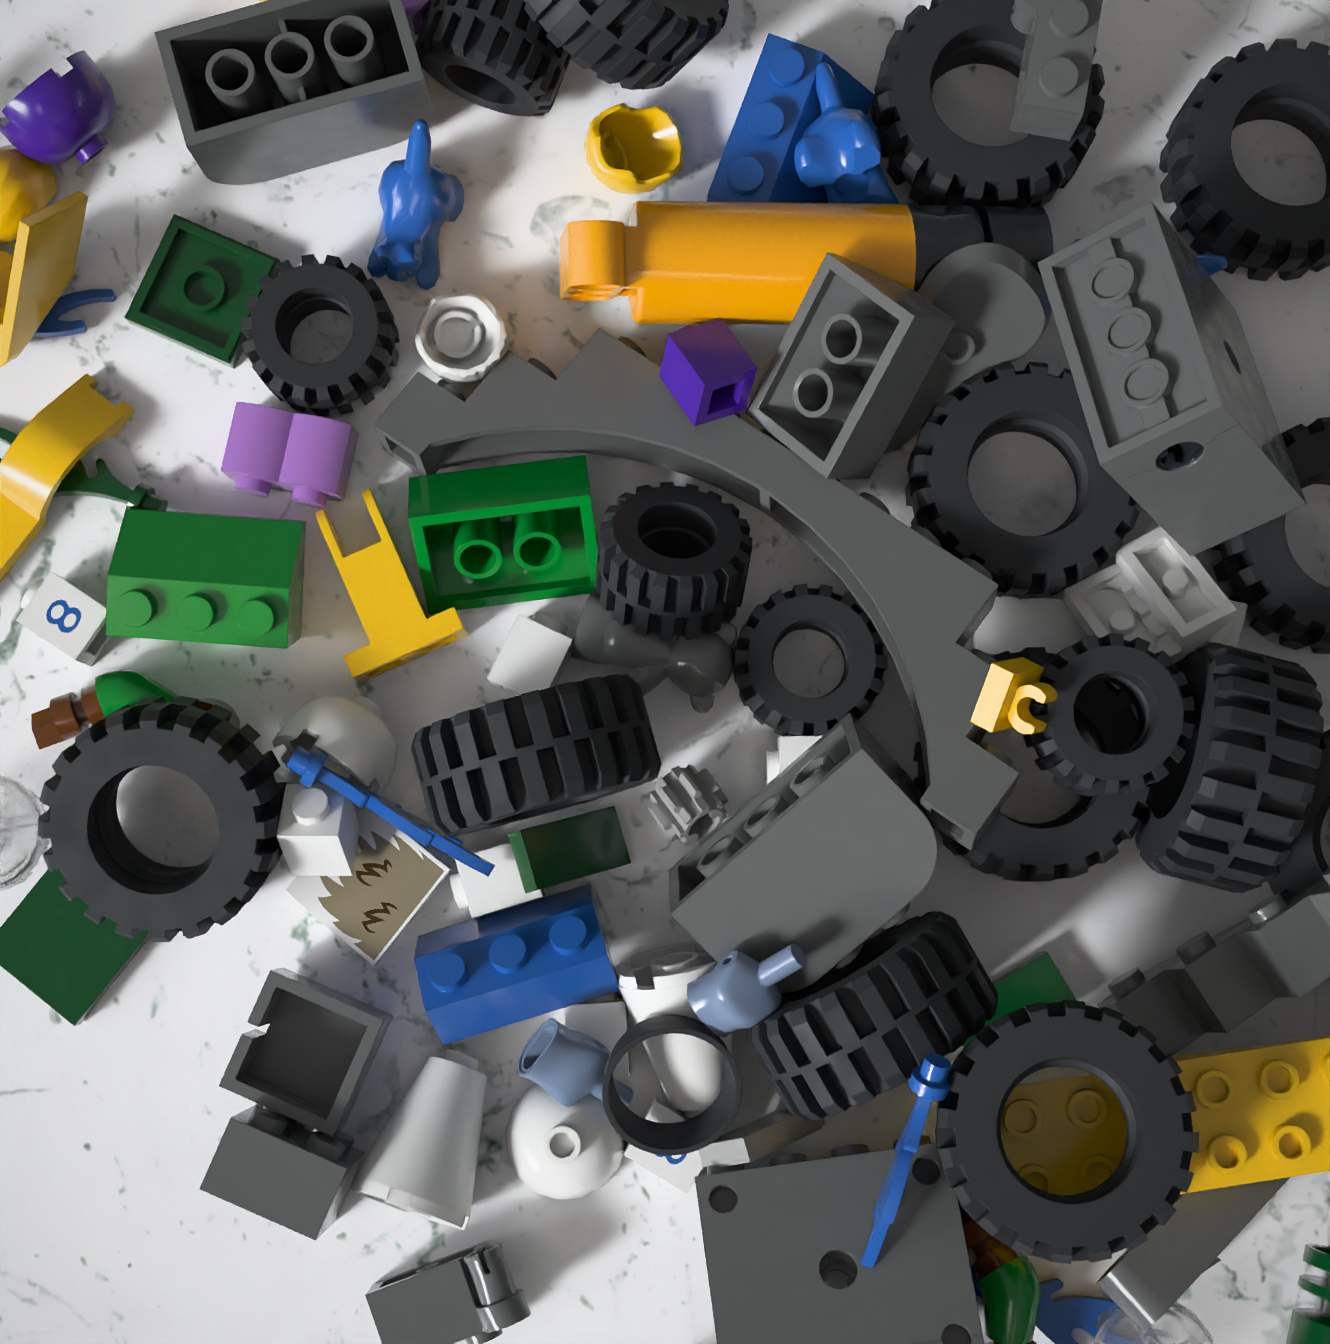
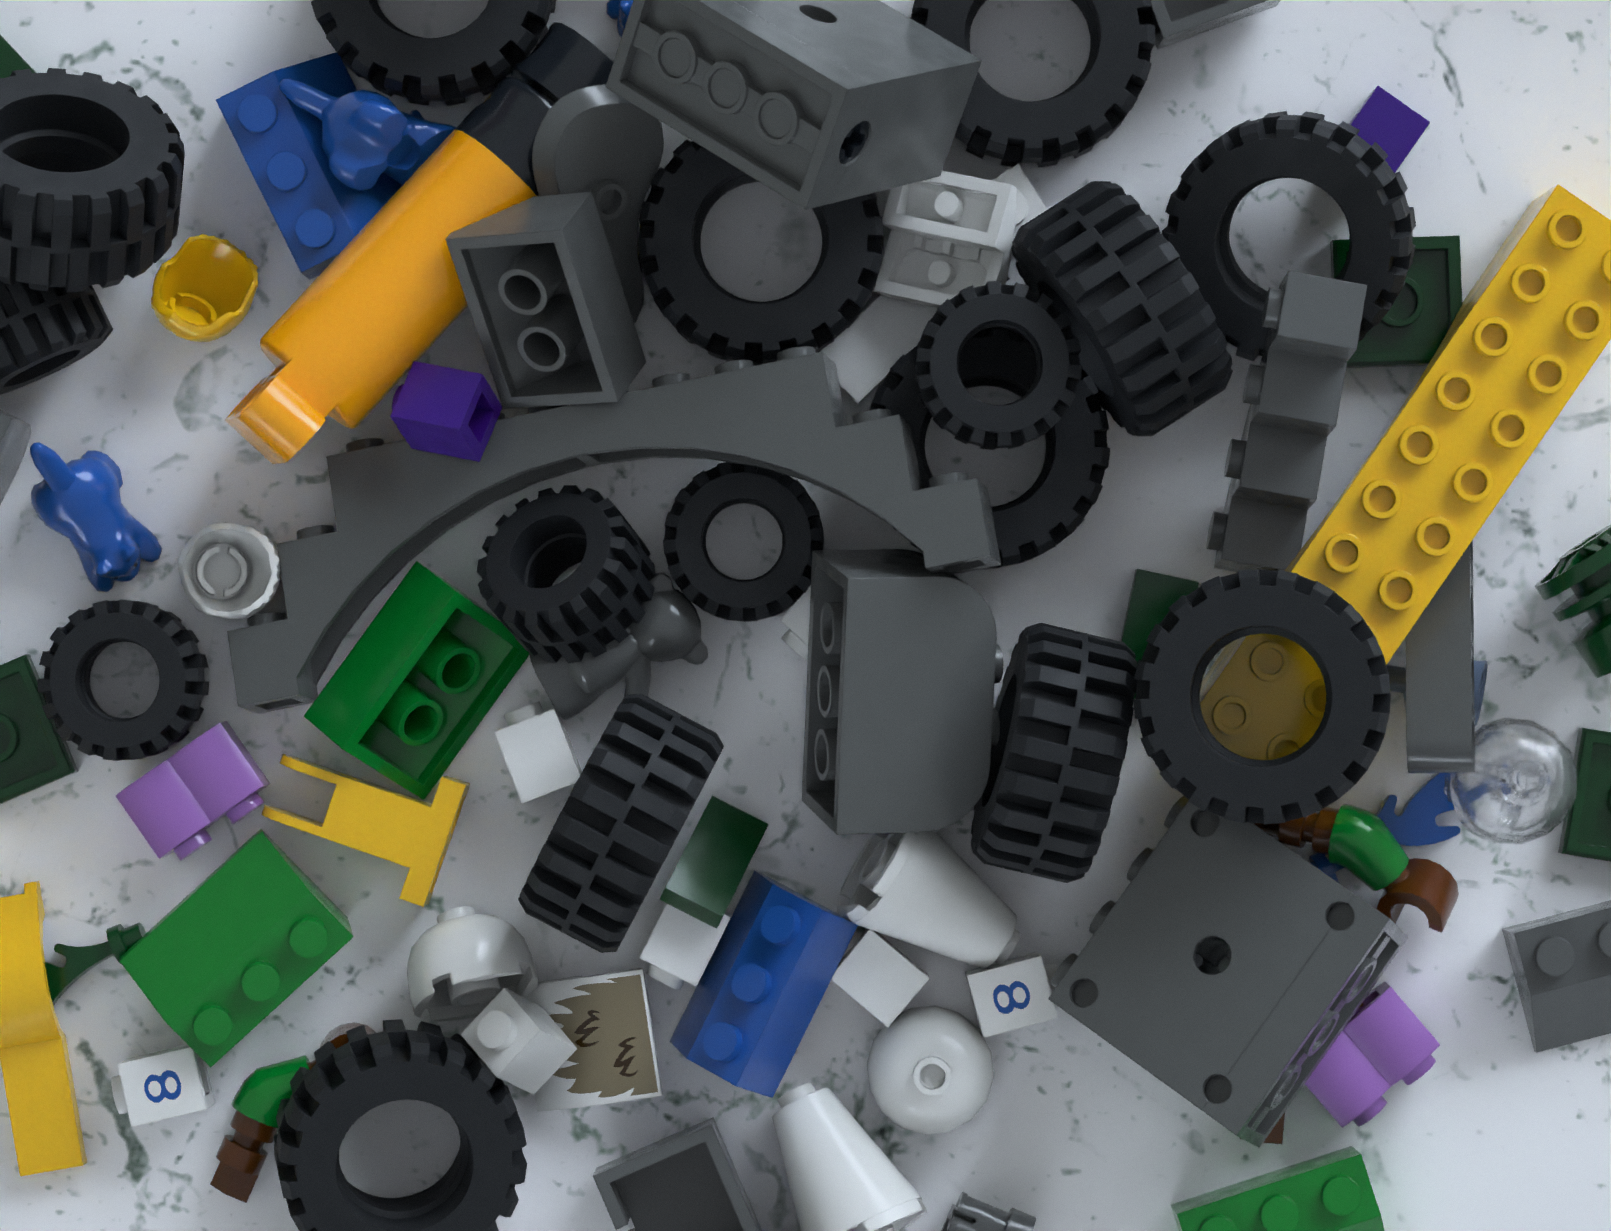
camera: 50 degrees left, 5 degrees up
(312, 768) = (469, 1002): blue piece -> none
(567, 1064) = (880, 1015): sand blue piece -> none
(681, 1136) = (1007, 985): black tyre -> none
(688, 804) = (765, 738): light grey gear -> none
(742, 989) = (942, 833): sand blue piece -> none
(757, 1139) = (1067, 924): light grey tile -> none
(929, 1084) = (1135, 764): blue piece -> none
(1008, 695) = (912, 430): yellow tile -> none

